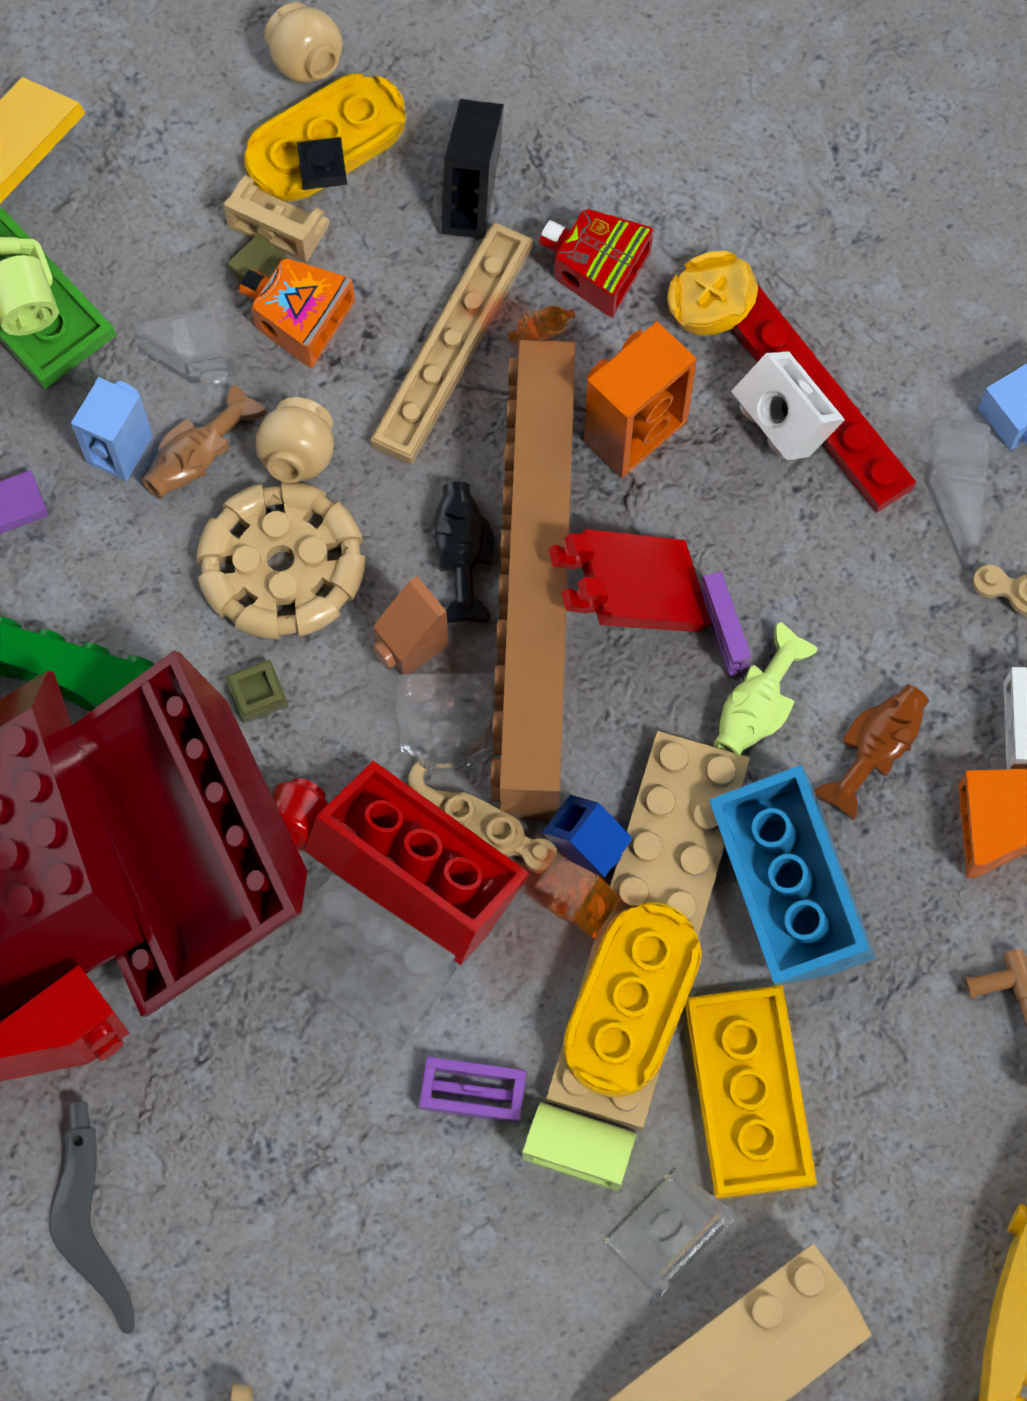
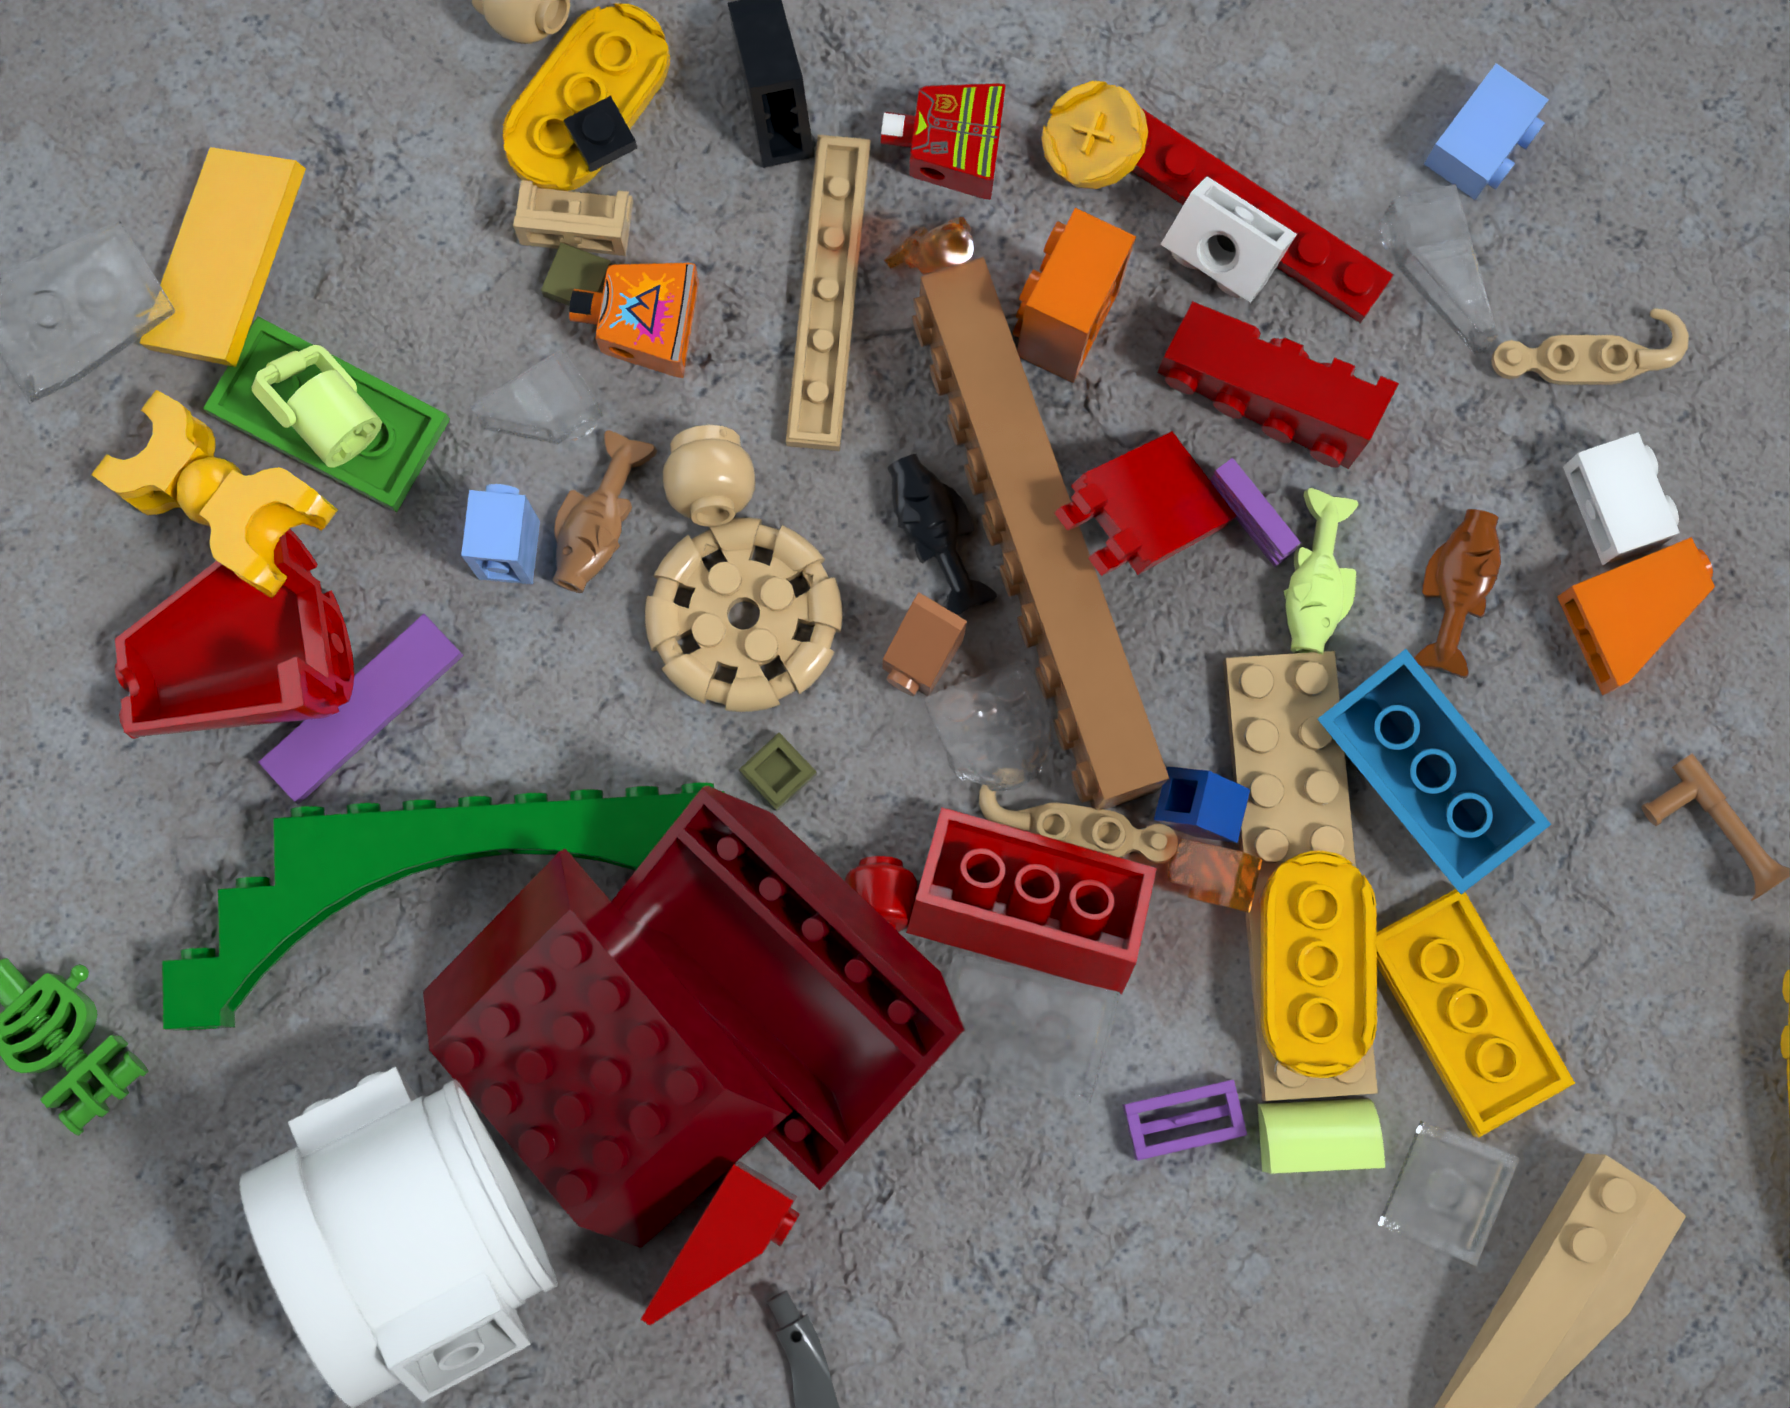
camera: 25 degrees left, 10 degrees up
(782, 531) = (1276, 385): none -> red wedge

